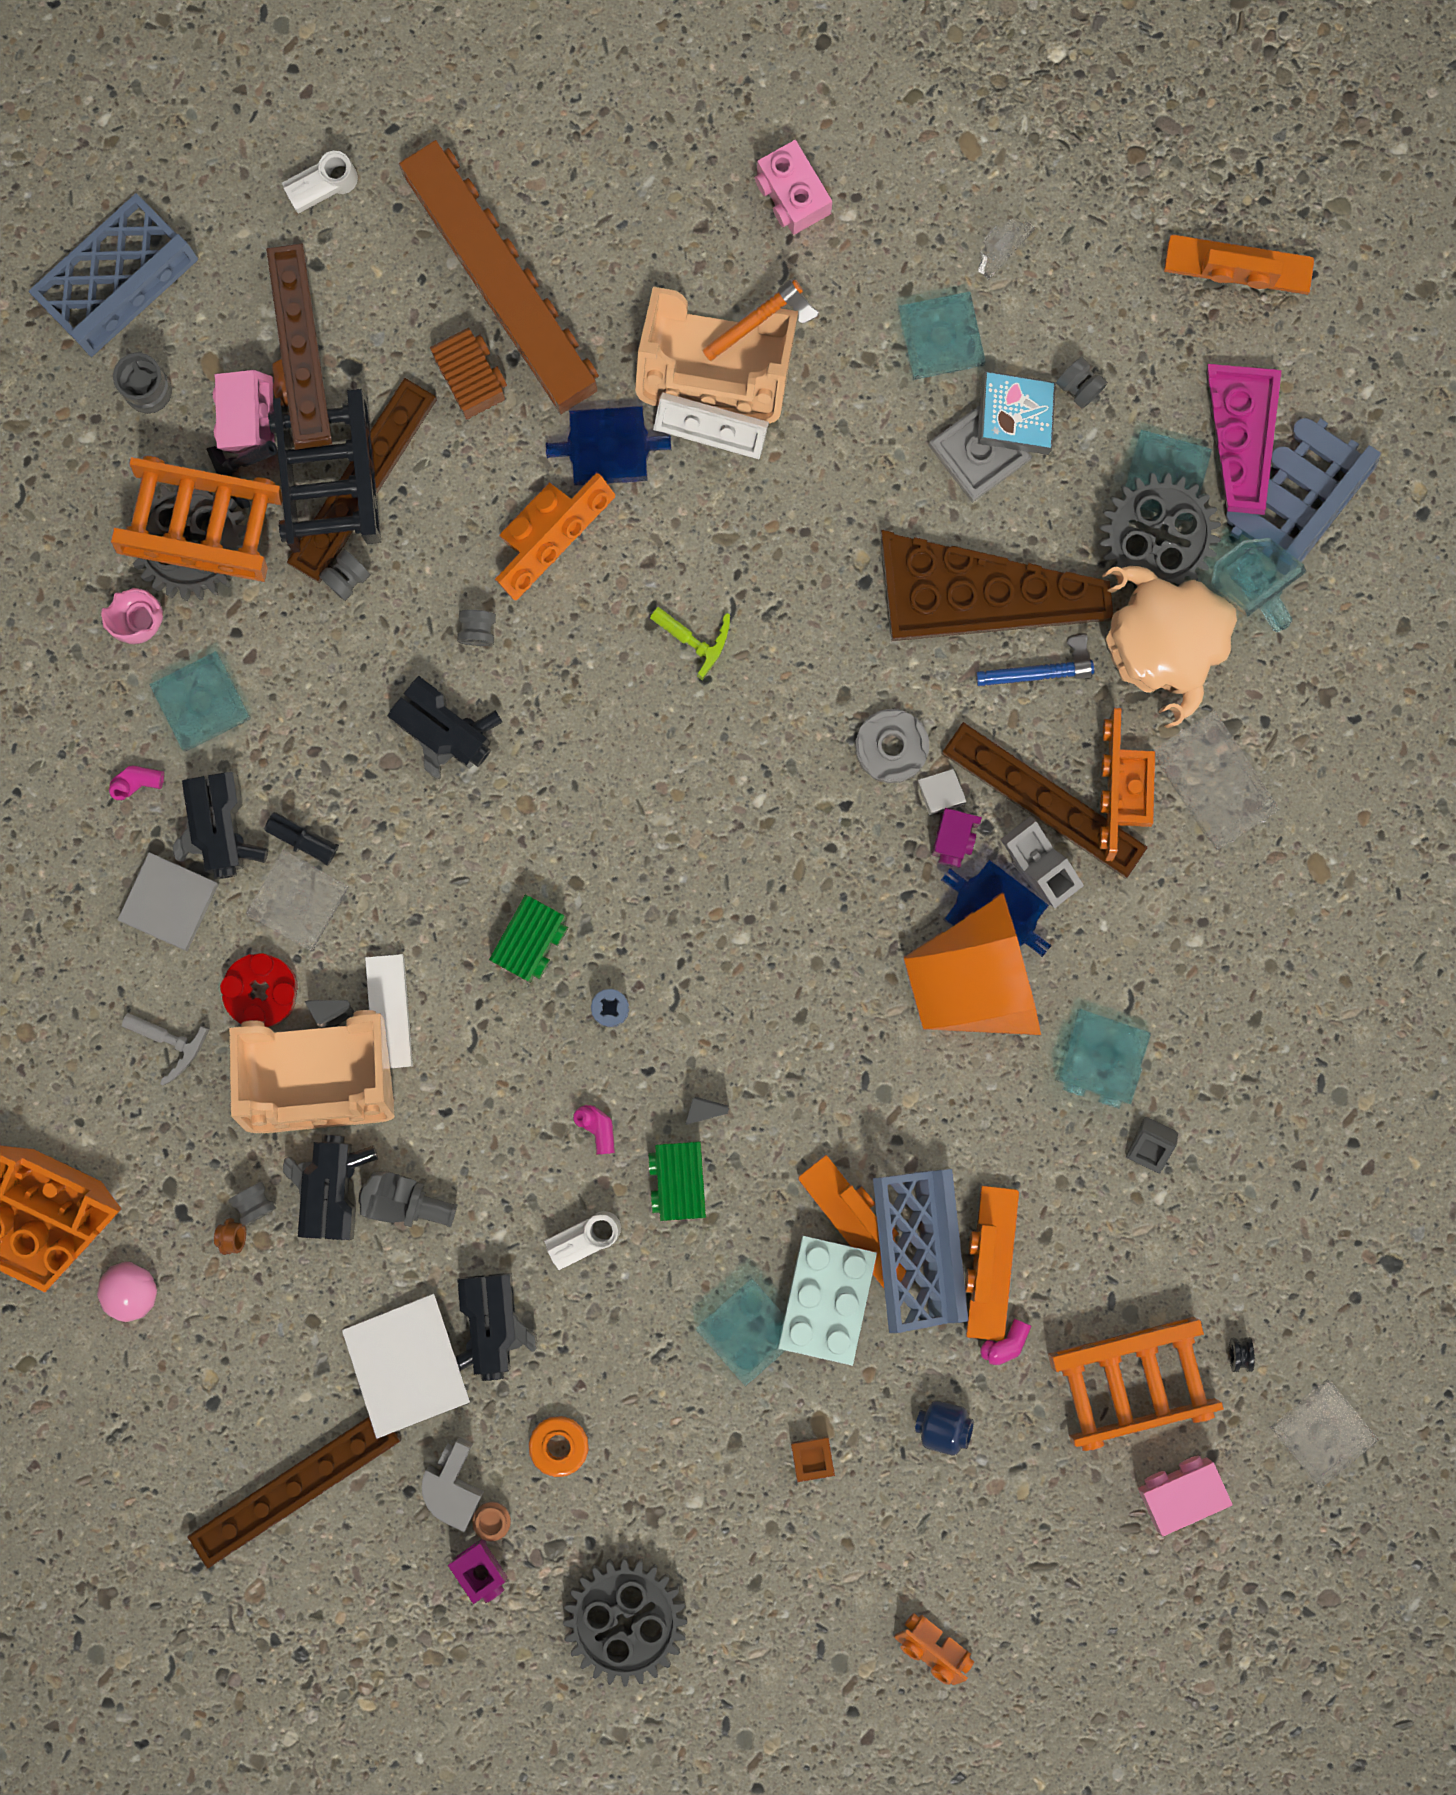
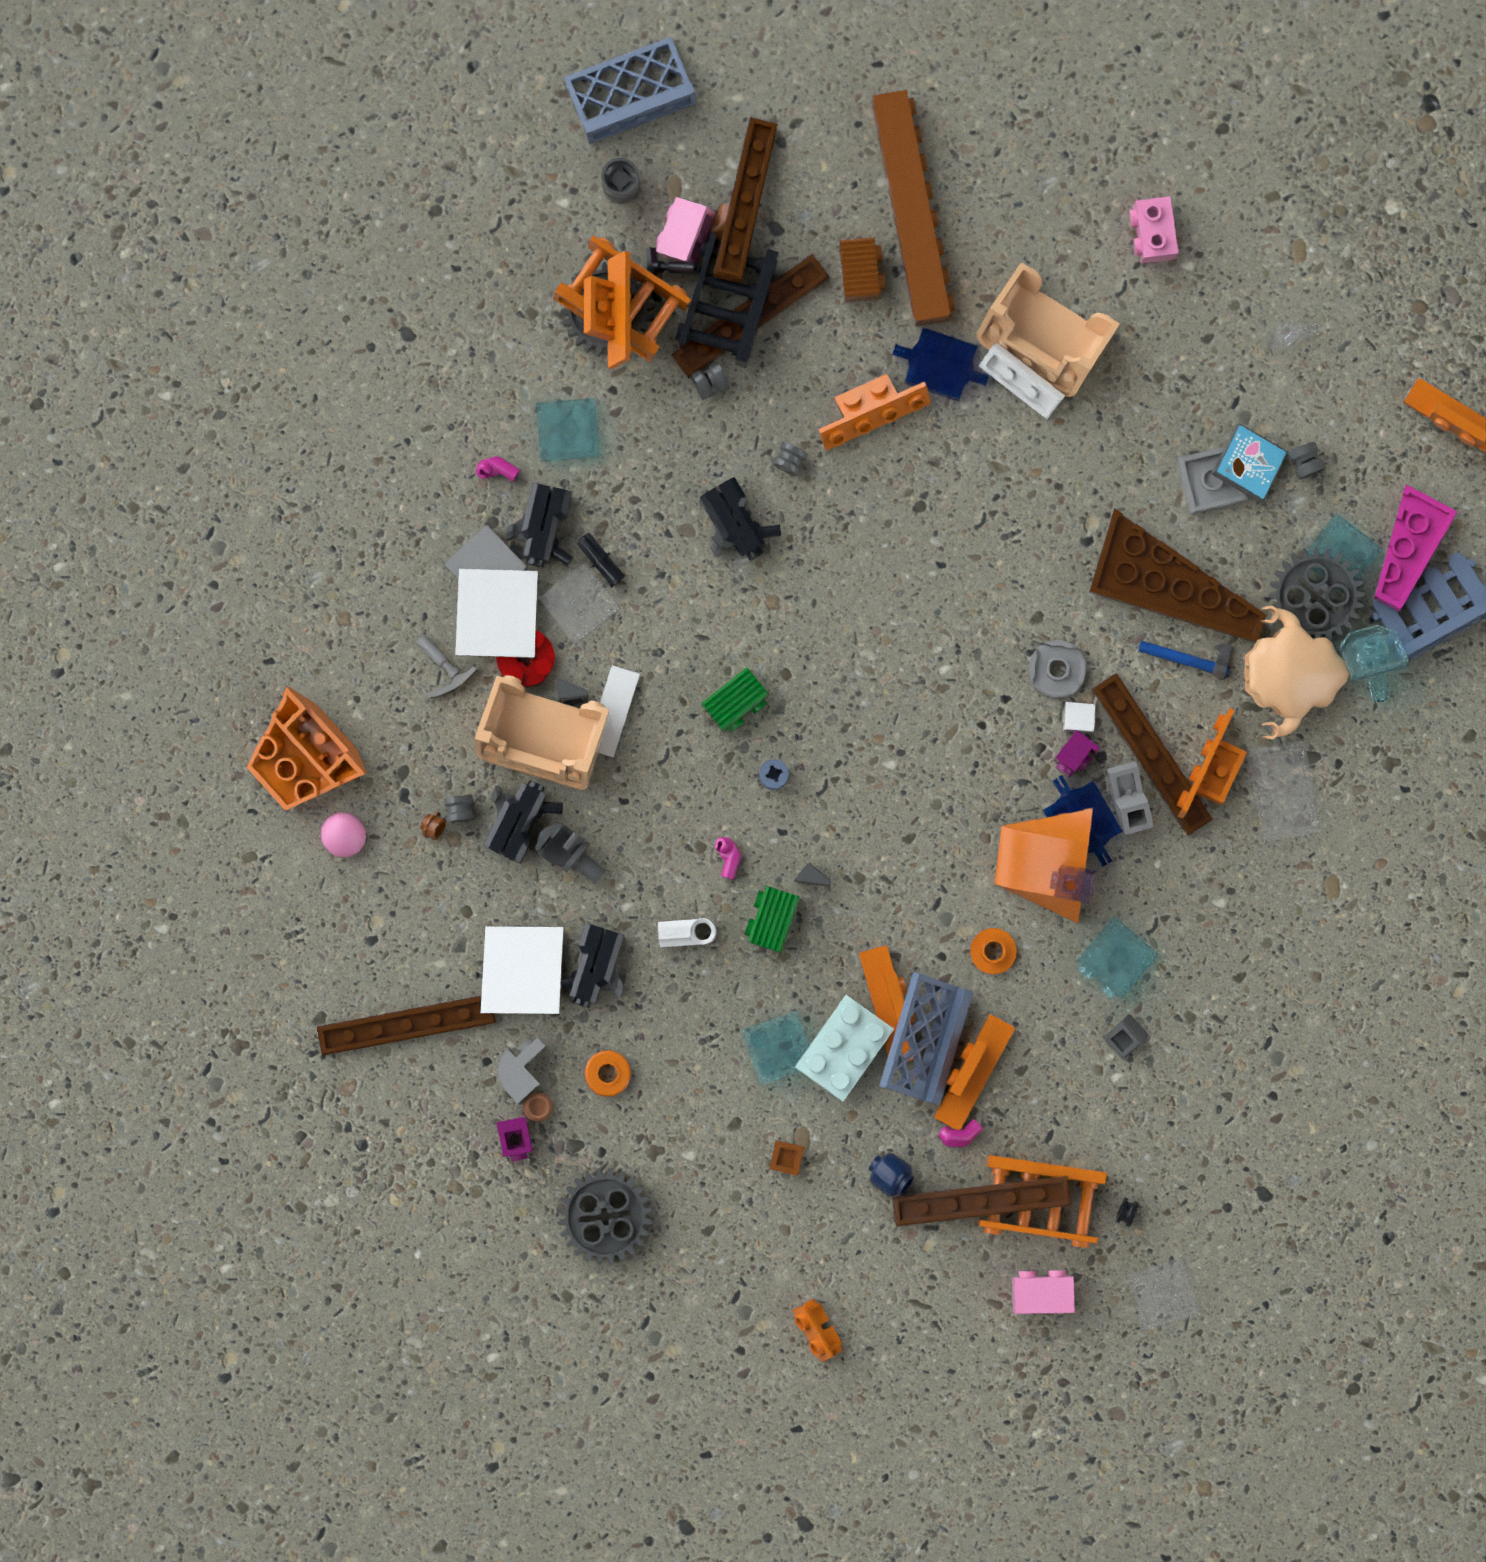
camera: 20 degrees right, 0 degrees up
(133, 616) = (544, 348): bright pink hair -> none
(182, 535) = (609, 309): none -> orange bracket
(202, 952) = (496, 613): none -> white sticker
(315, 182) = (805, 84): white piece -> none
(685, 636) = (939, 526): lime piece -> none
(789, 293) = (1118, 309): orange piece -> none
(941, 335) = (1218, 383): clear light blue plate -> none
(974, 1109) = (978, 954): none -> orange piece
(1028, 981) = (1082, 877): none -> brick
(1067, 1414) = (982, 1201): none -> reddish brown tile

